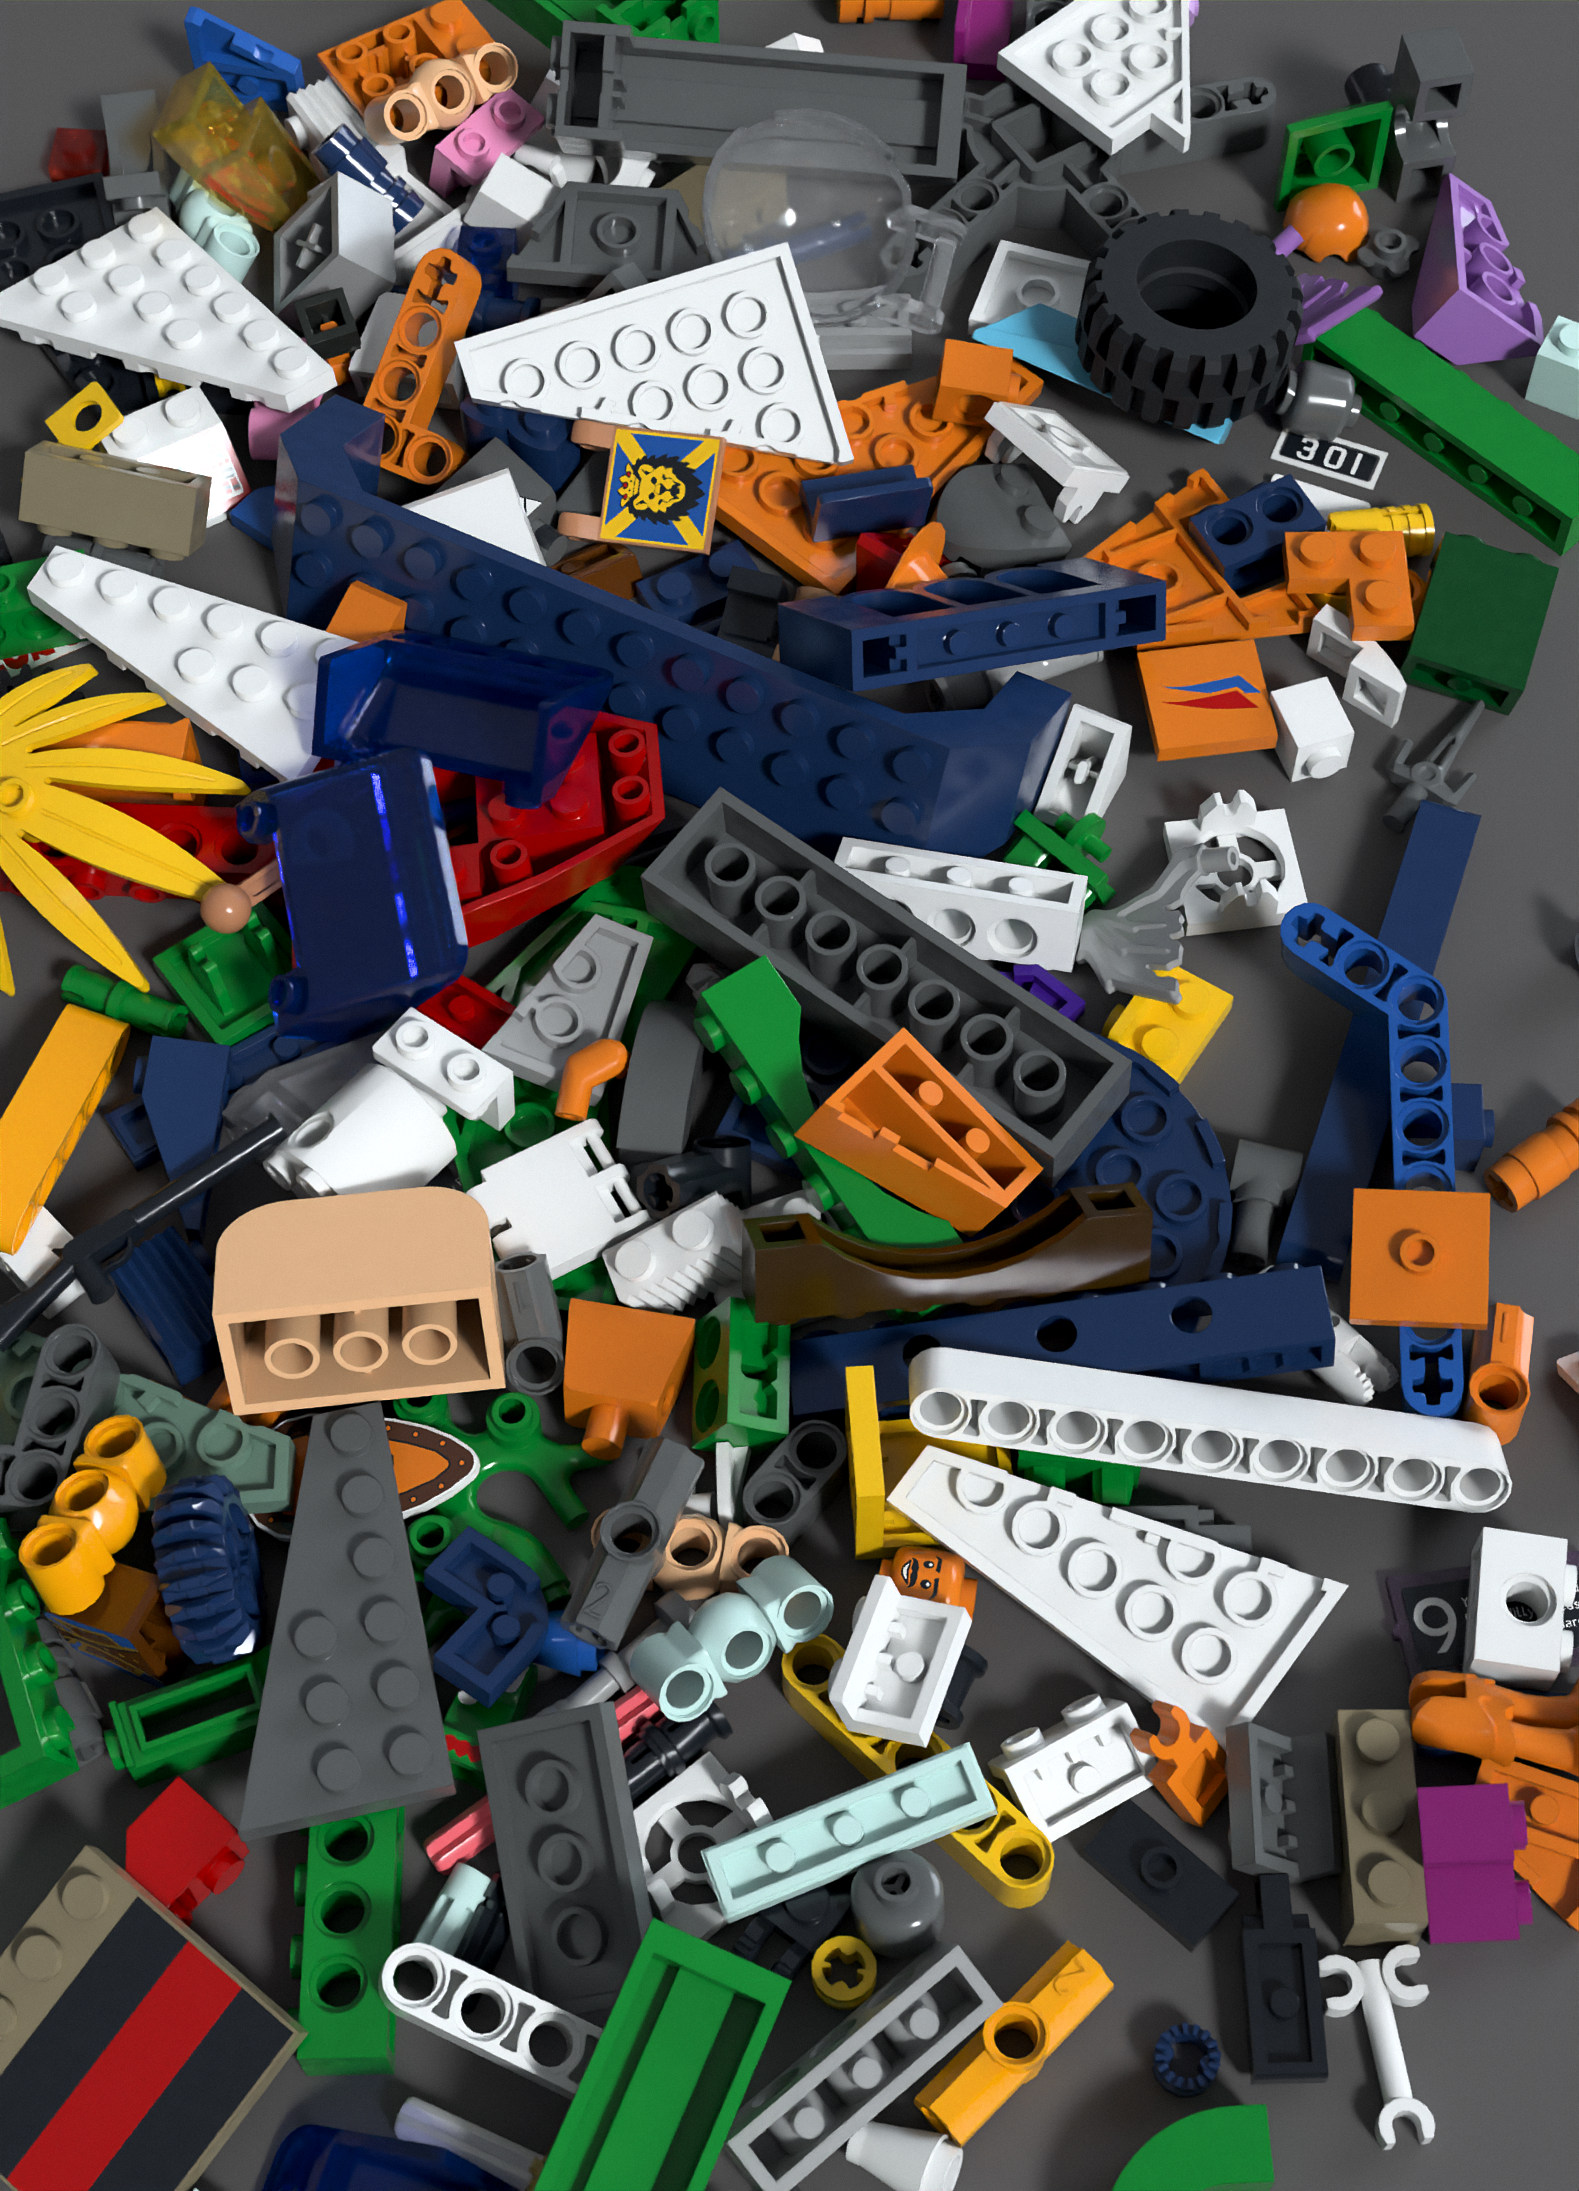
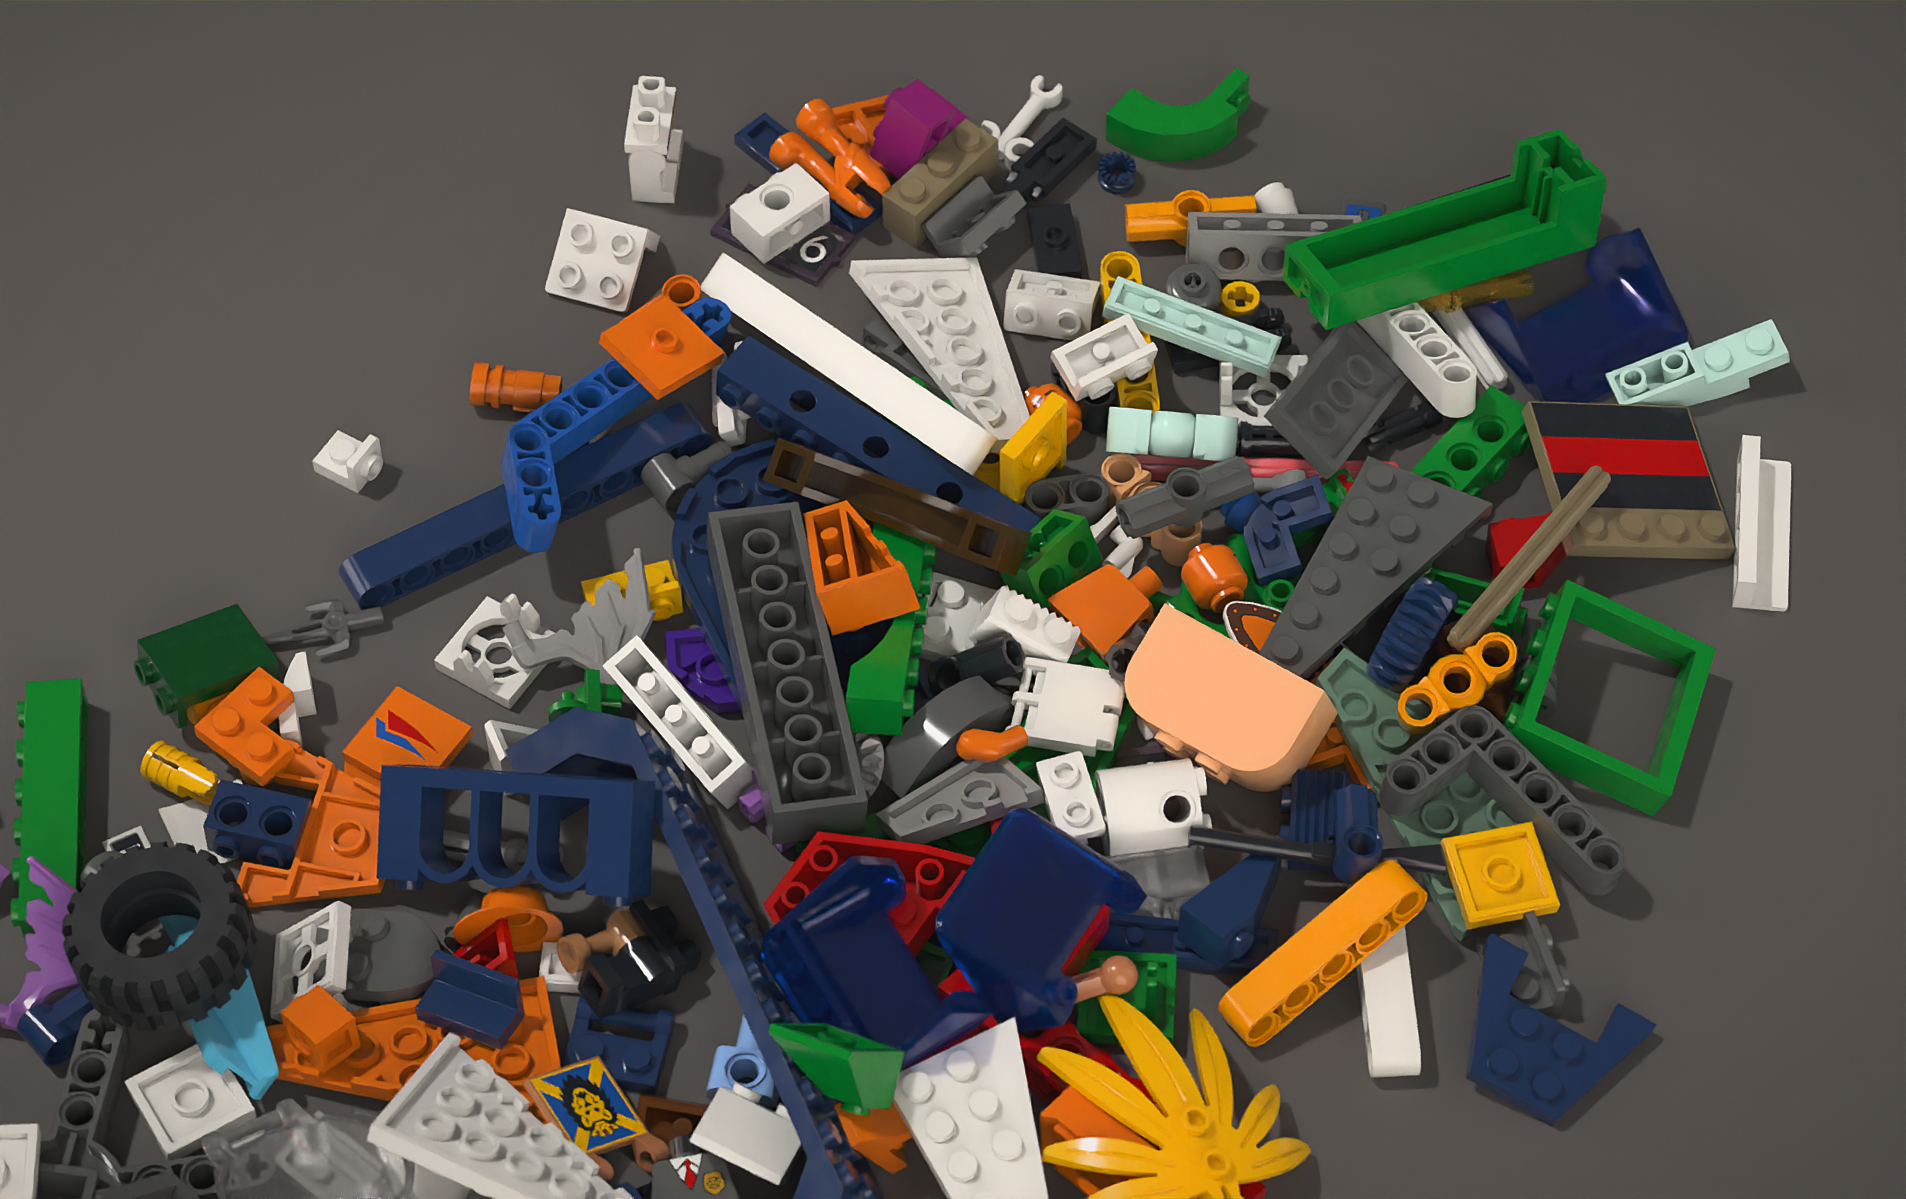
camera: 140 degrees left, 5 degrees down
(81, 1244) = (1356, 833): none -> dark blue piece
(115, 1759) = (1528, 559): none -> dark tan axle
(124, 1002) = (1195, 997): green pin -> none
(418, 584) = (843, 1064): none -> green slope
(453, 1909) = (1409, 444): light aqua piece -> none
(524, 1493) = (1214, 576): none -> orange head
(1189, 1764) = (1001, 262): orange plate -> none
(1311, 730) = (366, 685): white brick -> none

